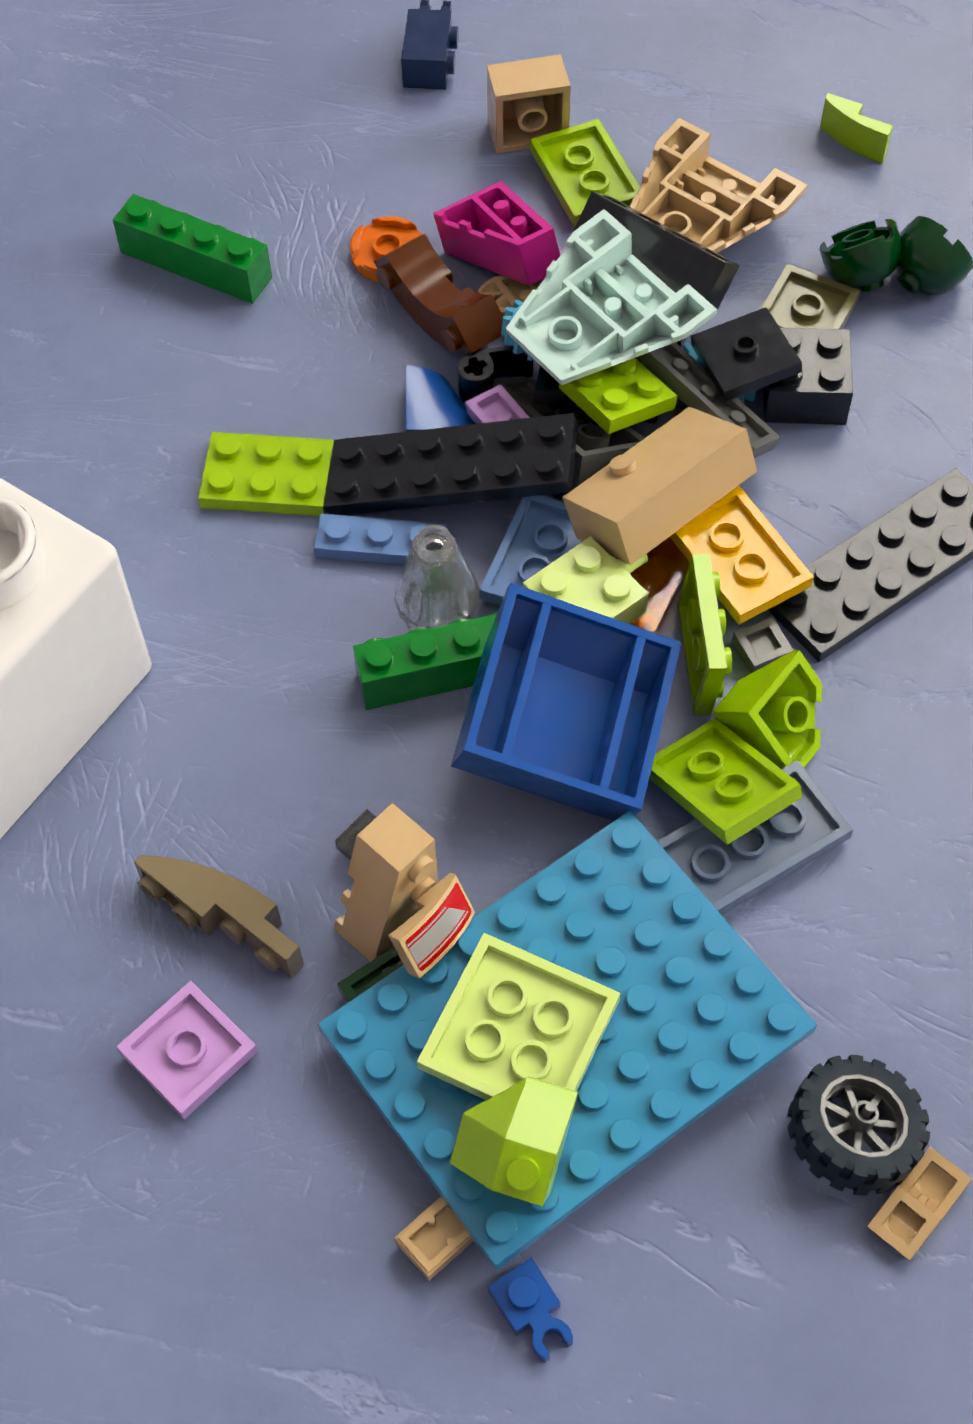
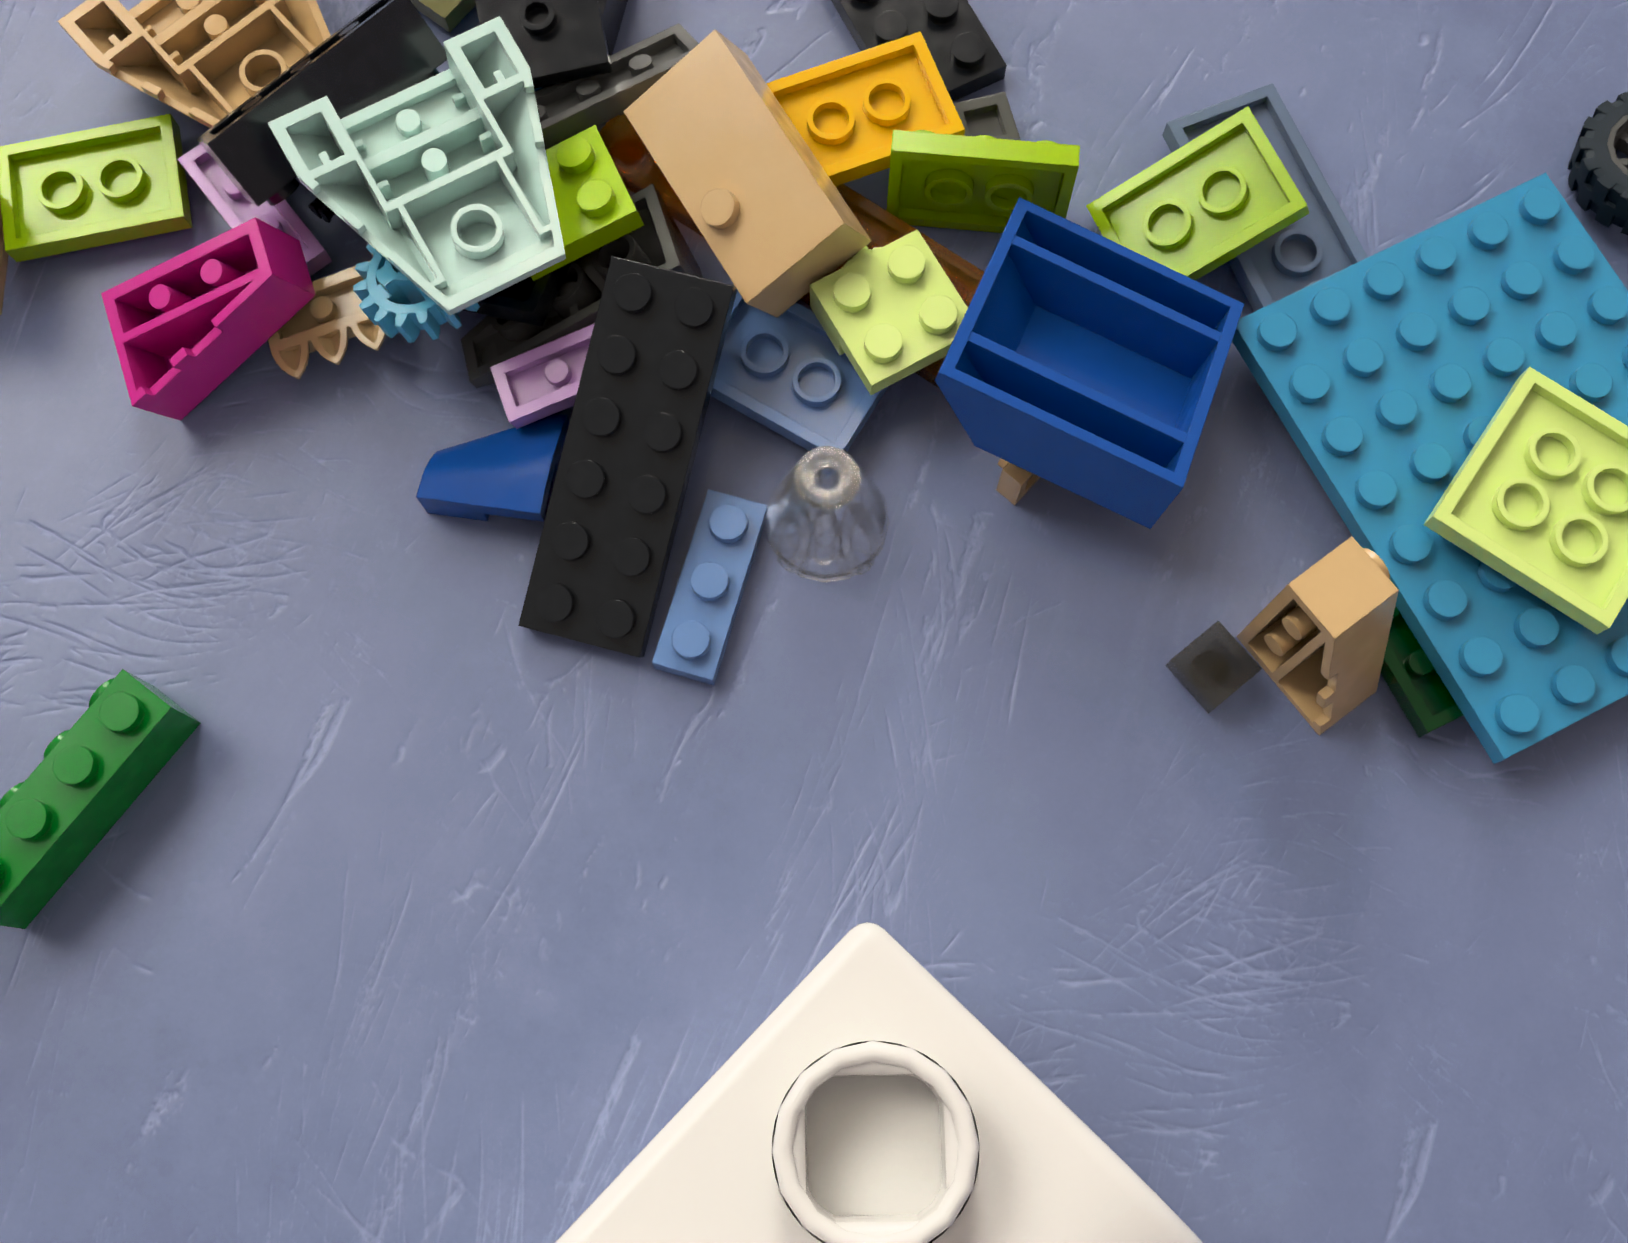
camera: 80 degrees left, 15 degrees up
(187, 1049) = (1498, 946): lavender plate -> none
(215, 899) = (1280, 892): dark tan slope -> none
(266, 474) = (551, 736): lime plate -> none
(377, 240) = (154, 499): orange tile -> none
(421, 661) = (946, 525): green brick -> none
(425, 289) = (258, 452): reddish brown brick -> none
(435, 927) = (1426, 590): slope -> none
(479, 369) = (449, 387): black panel -> none
(776, 710) = (1111, 130): lime slope -> none

